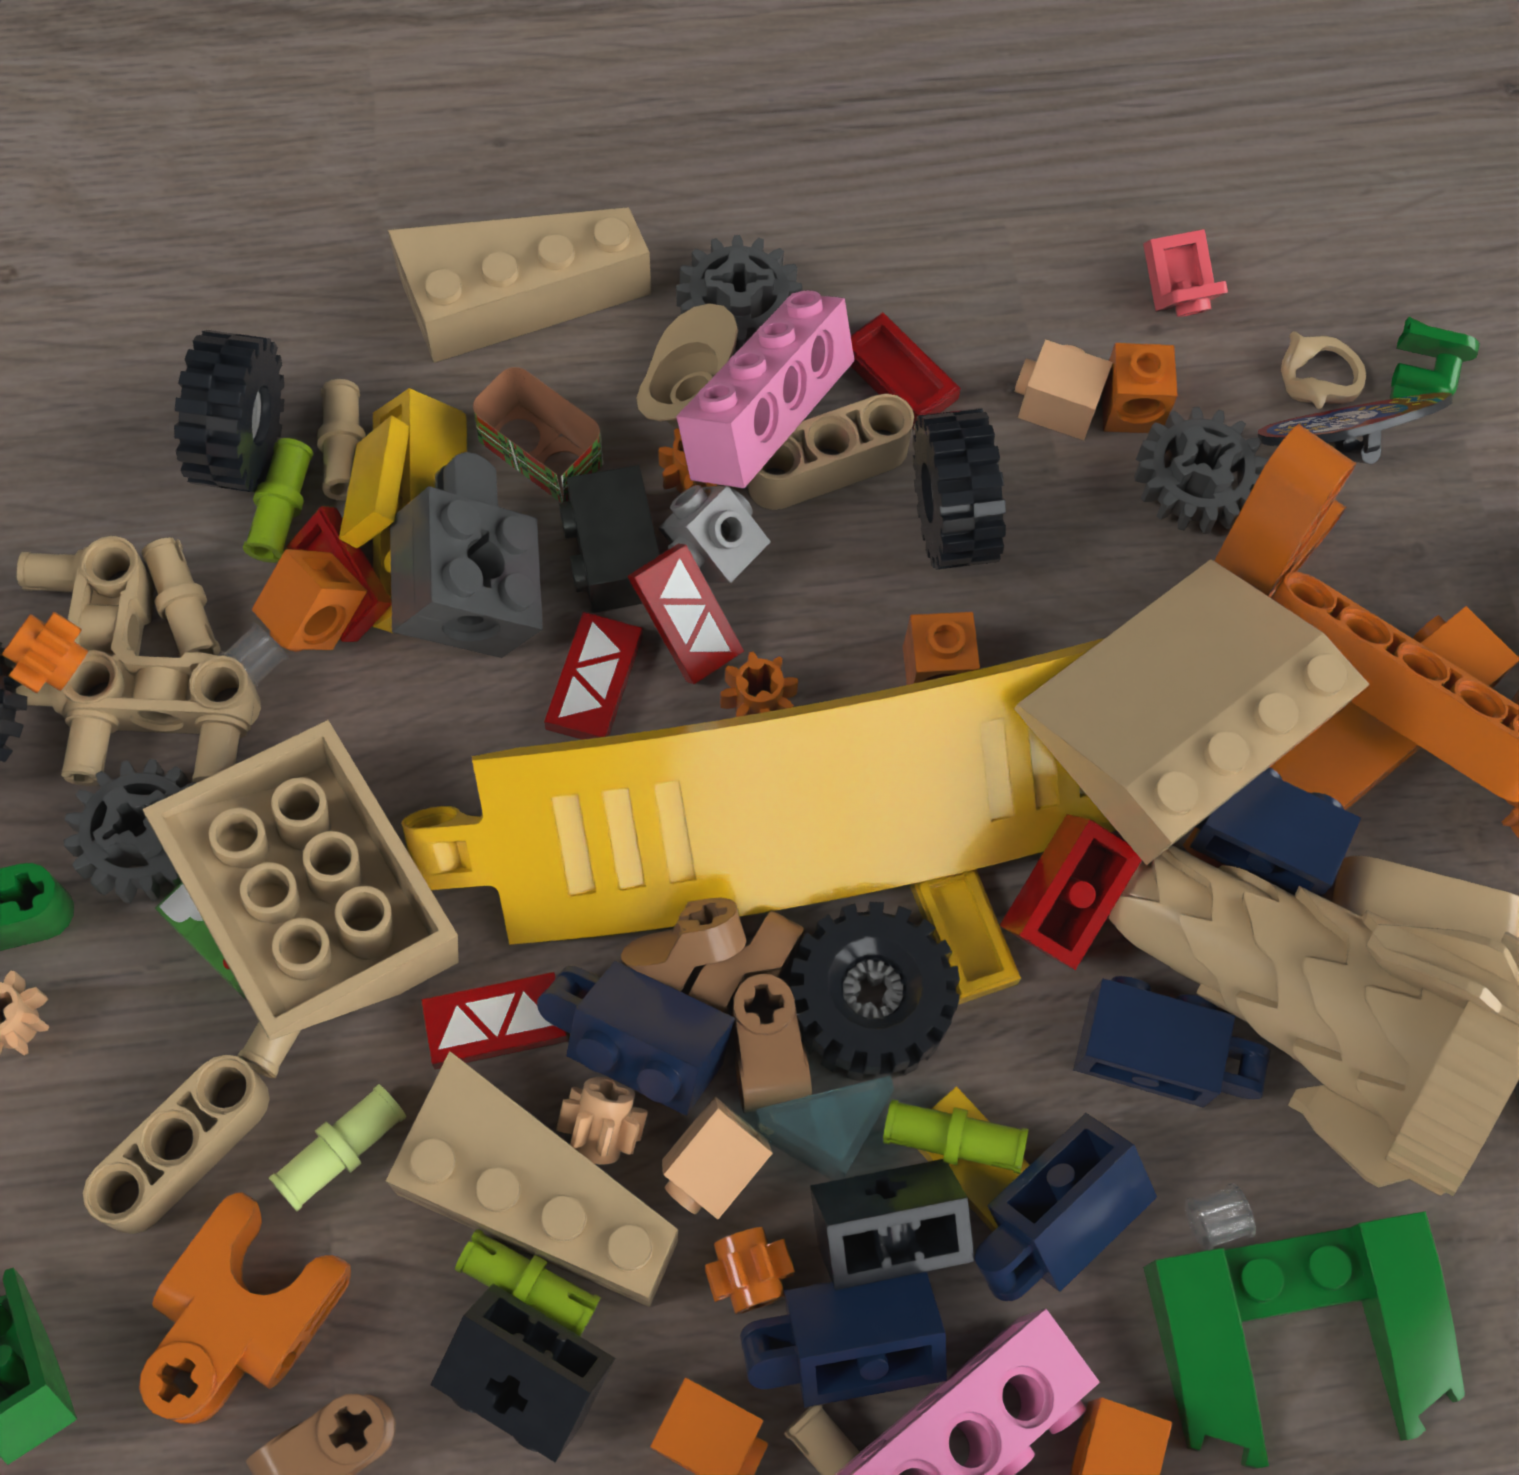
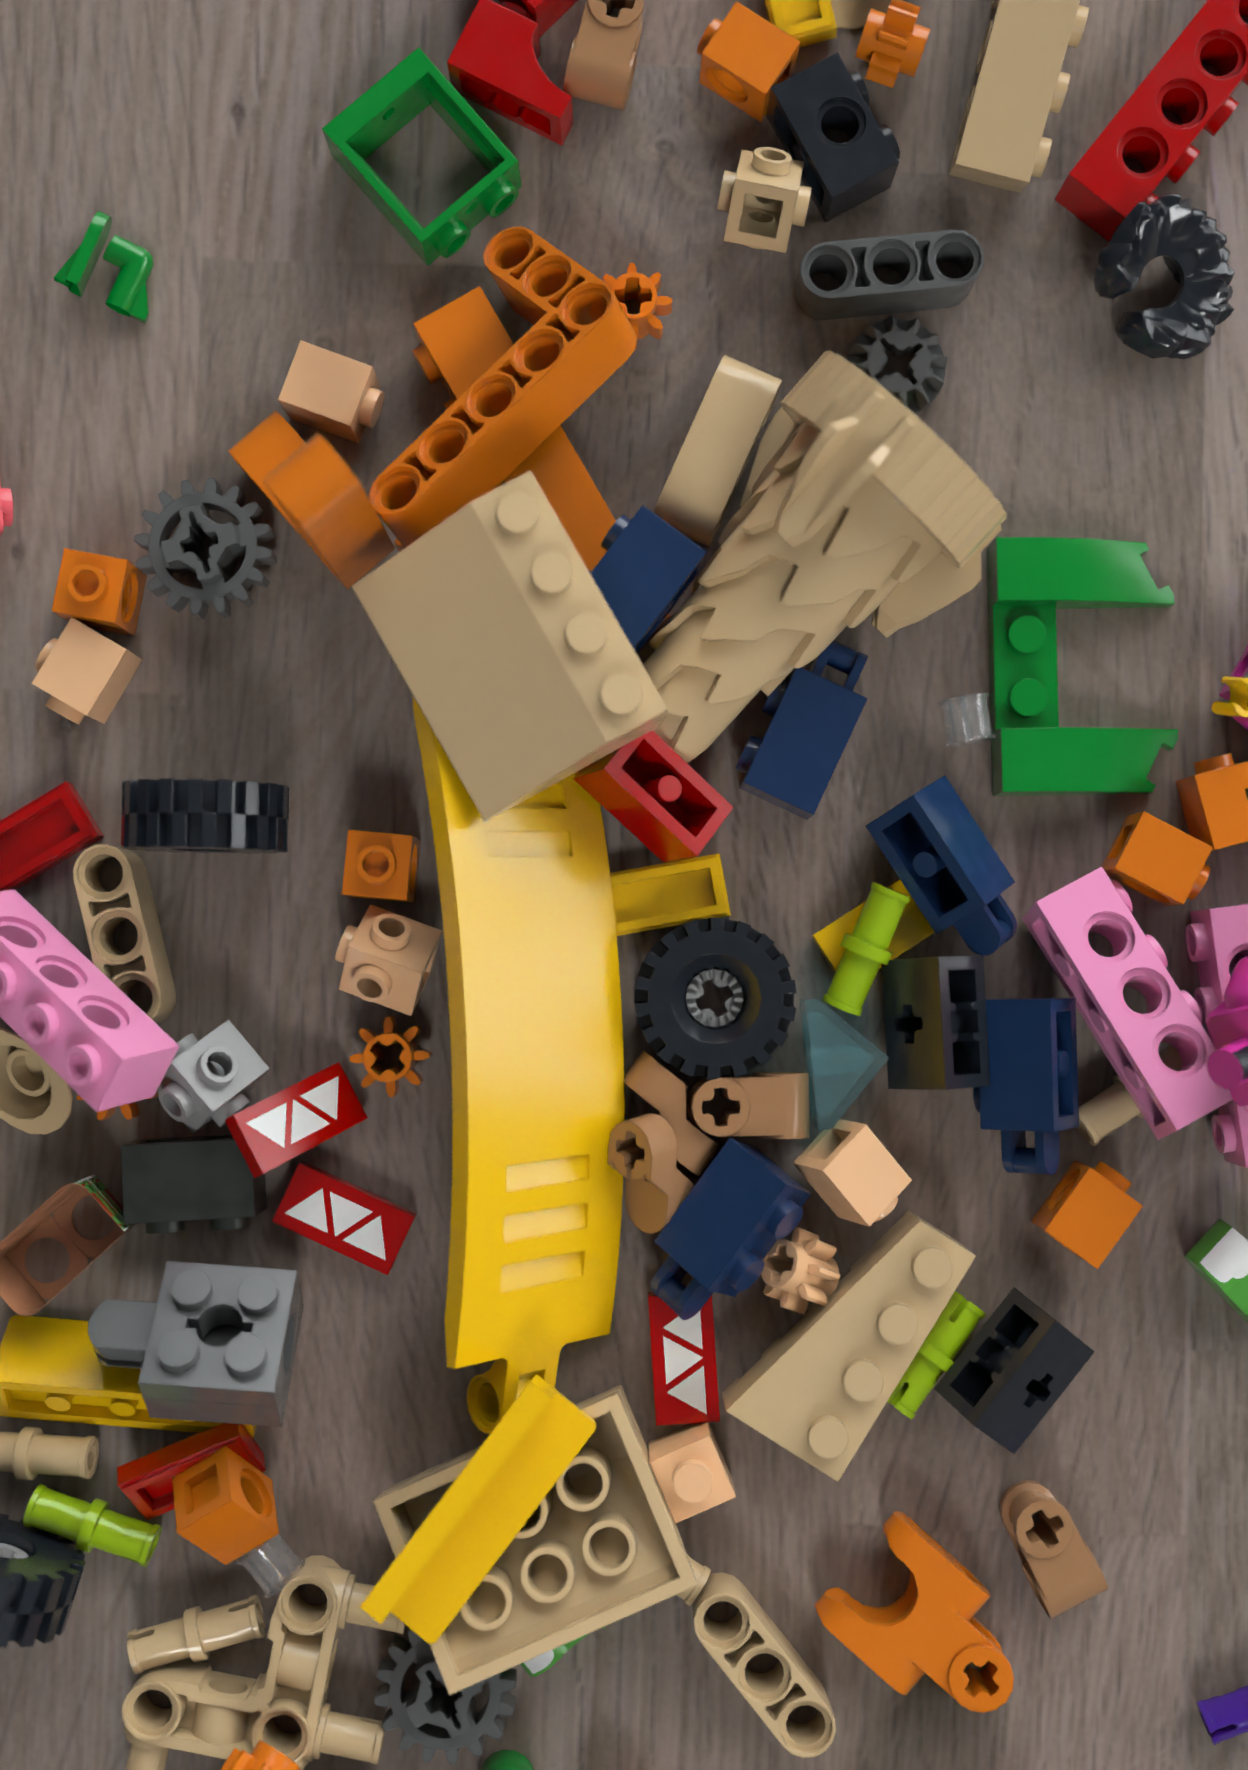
camera: 80 degrees left, 20 degrees up
(333, 810) = (481, 1511): none -> yellow panel
(337, 1147) = (784, 1516): yellowish green pin -> none
(374, 482) = (99, 1427): yellow tile -> none
(379, 1036) = (690, 1470): none -> light nougat brick
(749, 1270) = (954, 1155): orange gear -> none
(851, 663) = (387, 959): none -> light nougat brick
(1314, 390) = (123, 405): tan piece -> none
(1354, 421) = (178, 377): shield -> none
(1377, 553) = (331, 392): none -> light nougat brick

